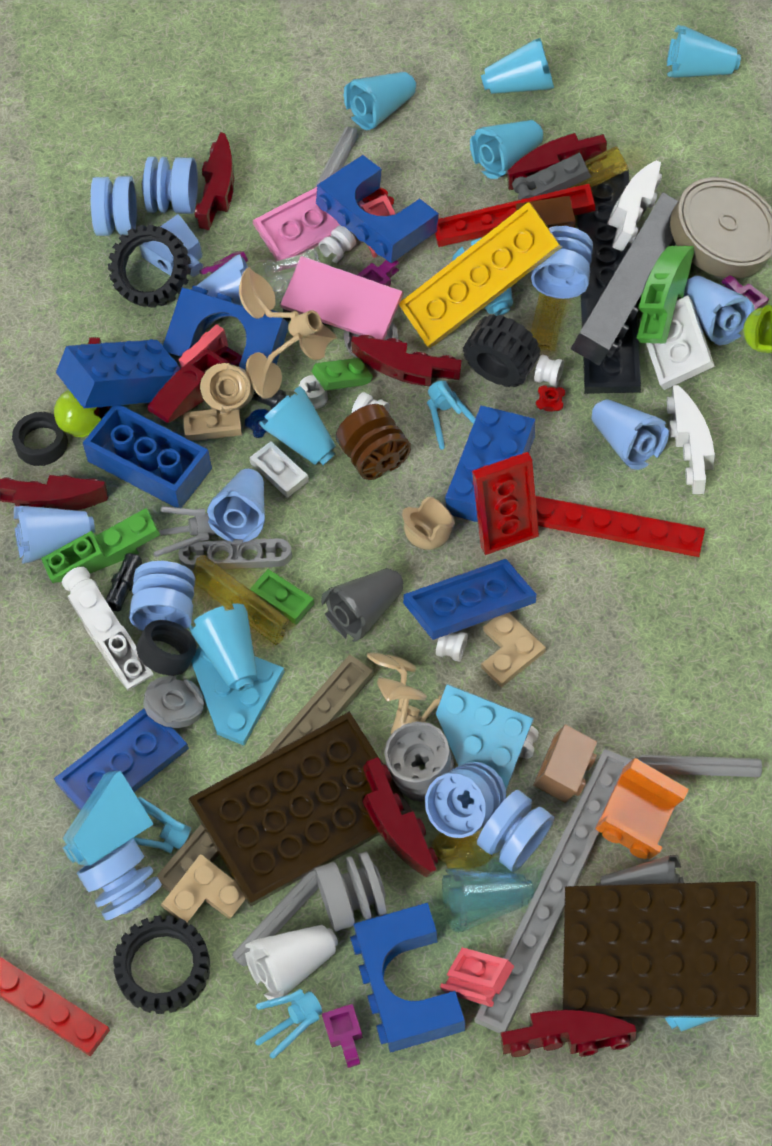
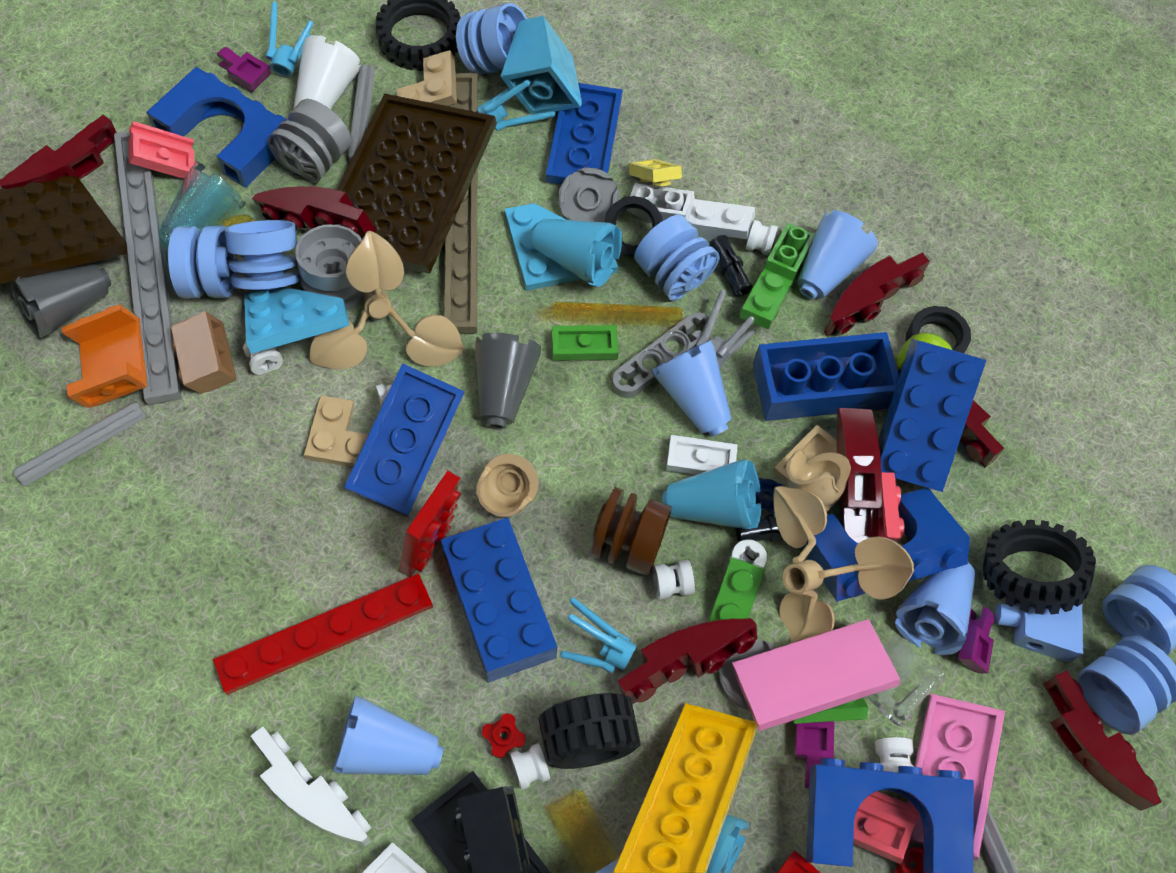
camera: 130 degrees right, 5 degrees up
(105, 680) = (655, 171): none -> light yellow plate

